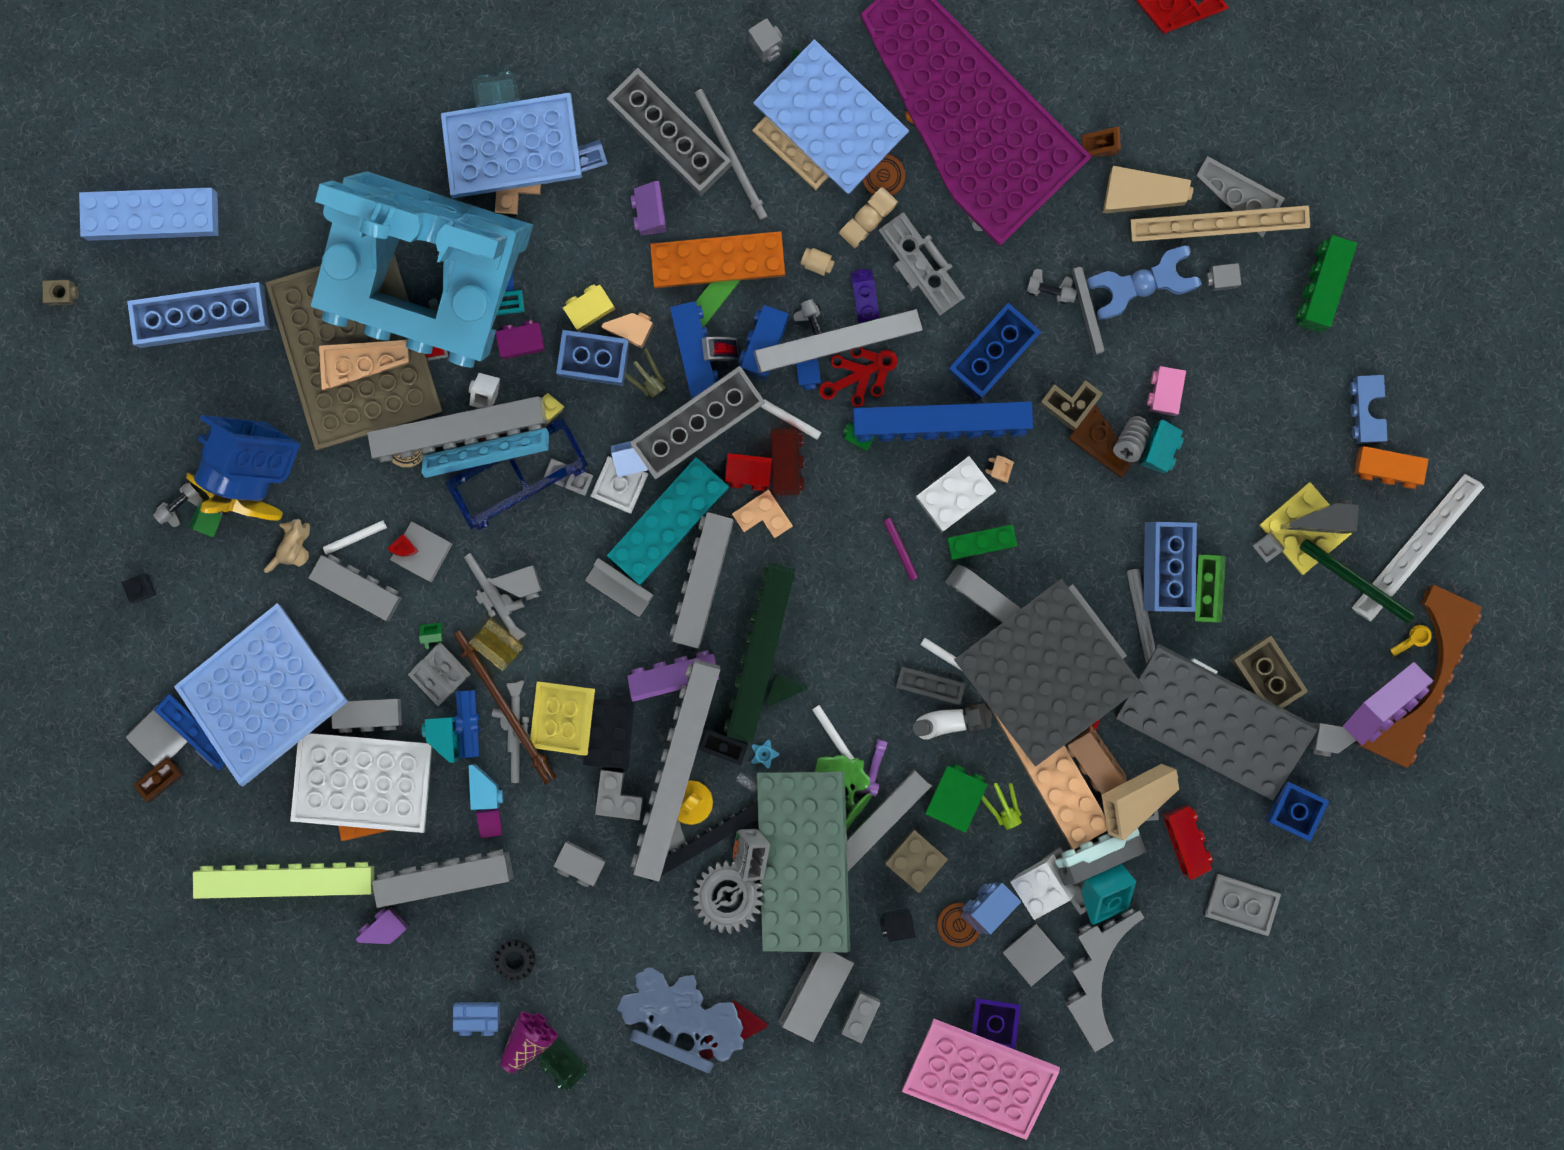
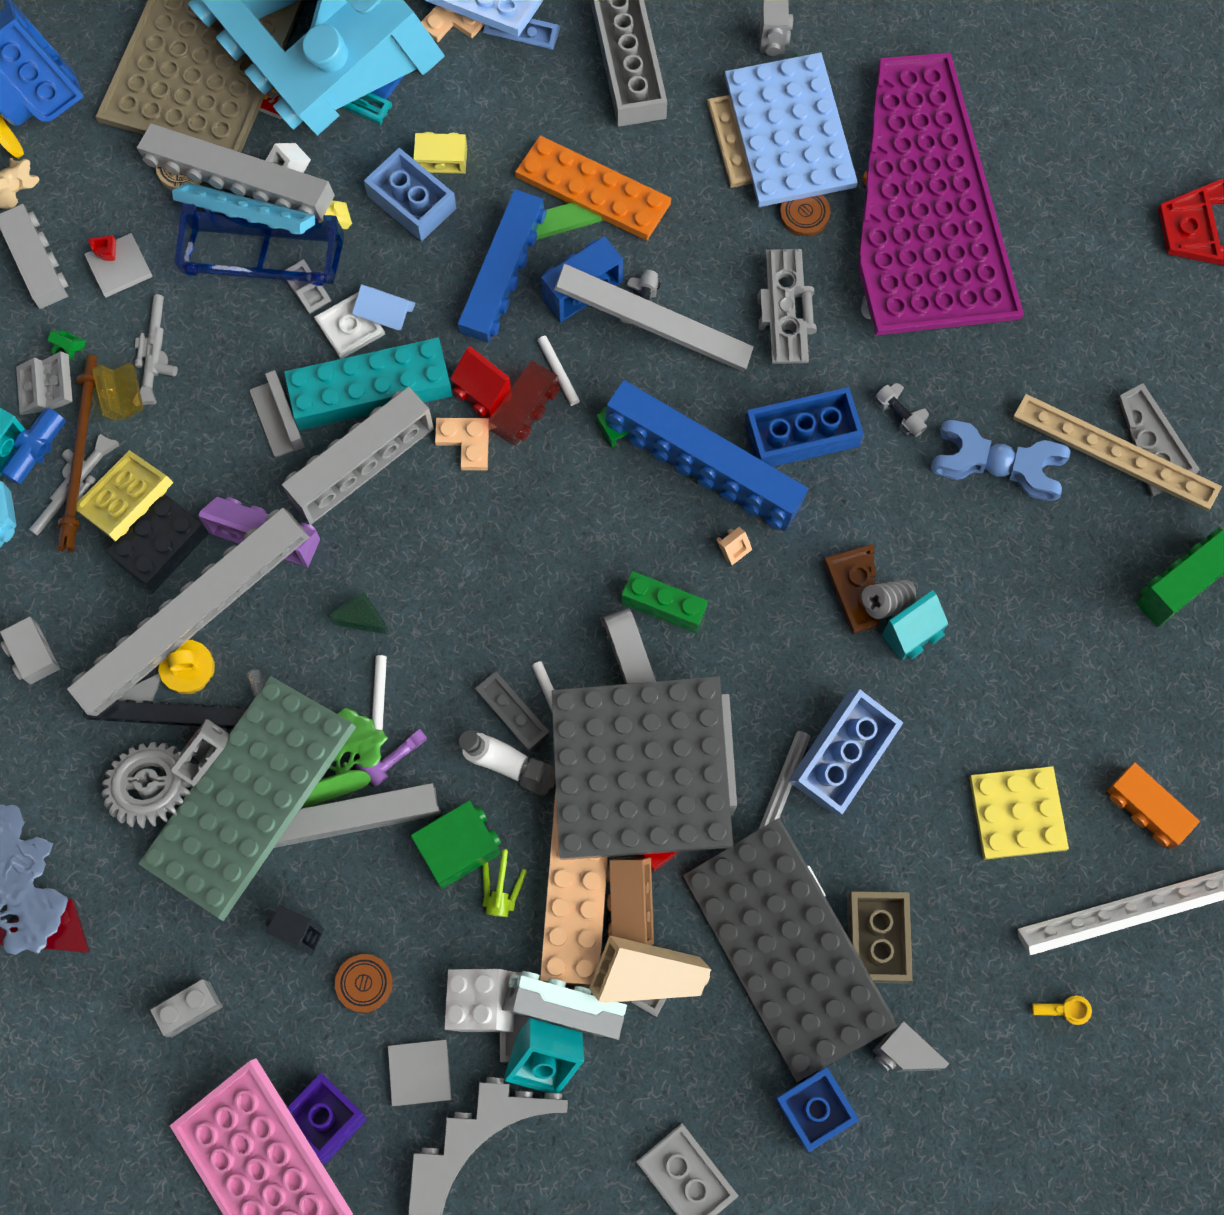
camera: 30 degrees right, 15 degrees down
(354, 537) = (70, 215): white bar -> none
(359, 360) = (194, 63): light nougat wing -> none
(520, 340) = (355, 141): magenta brick -> none
(520, 583) = (187, 349): light grey slope -> none
(612, 801) = (111, 605): light grey brick -> none
(631, 327) = (470, 195): light nougat slope -> none
(649, 209) = (562, 103): medium lavender slope -> none
(652, 384) = (448, 253): olive plant -> none
(697, 422) = (461, 301): light grey brick -> none
(720, 348) = (534, 257): slope -> none
(723, 746) = (258, 629): black brick -> none
(756, 204) = (665, 163): light grey bar -> none
(761, 652) = (362, 560): clear green brick -> none
(770, 754) = (290, 663): medium azure plate -> none
(808, 374) = (605, 335): blue brick -> none
(815, 994) = (159, 951): light grey brick -> none
(817, 261) = (687, 244): tan brick -> none
(861, 373) = (658, 370): red plant -> none
(865, 295) = (712, 300): dark purple bracket -> none
(868, 217) = (764, 235): tan piece -> none
(900, 549) = (578, 560): magenta bar -> none
(916, 860) = (366, 880): dark tan brick -> none
(955, 494) = (670, 538): white brick -> none
(990, 907) = (405, 977): medium blue brick -> none
(1071, 409) = (847, 531): dark tan brick -> none
(1087, 311) = (925, 452): light grey tile -> none
(1102, 142) = (1043, 309): dark orange slope -> none
(1144, 190) = (1057, 377): tan slope -> none
(1166, 391) = (957, 578): bright pink brick -> none
(1188, 841) = (673, 1060): red slope -> none
(1210, 588) = (874, 803): bright green brick -> none
(1224, 277) = (1088, 506): light grey brick -> none
(1268, 547) = (965, 804): light grey tile -> none
(1335, 518) = (1049, 808): dark grey slope -> none
(1357, 581) = (1042, 900): dark green axle -> none
(1366, 427) = (1151, 751): medium blue arch -> none
(1388, 704) = (994, 1051): medium lavender brick -> none
(1453, 622) = (1122, 1018): dark orange arch -> none

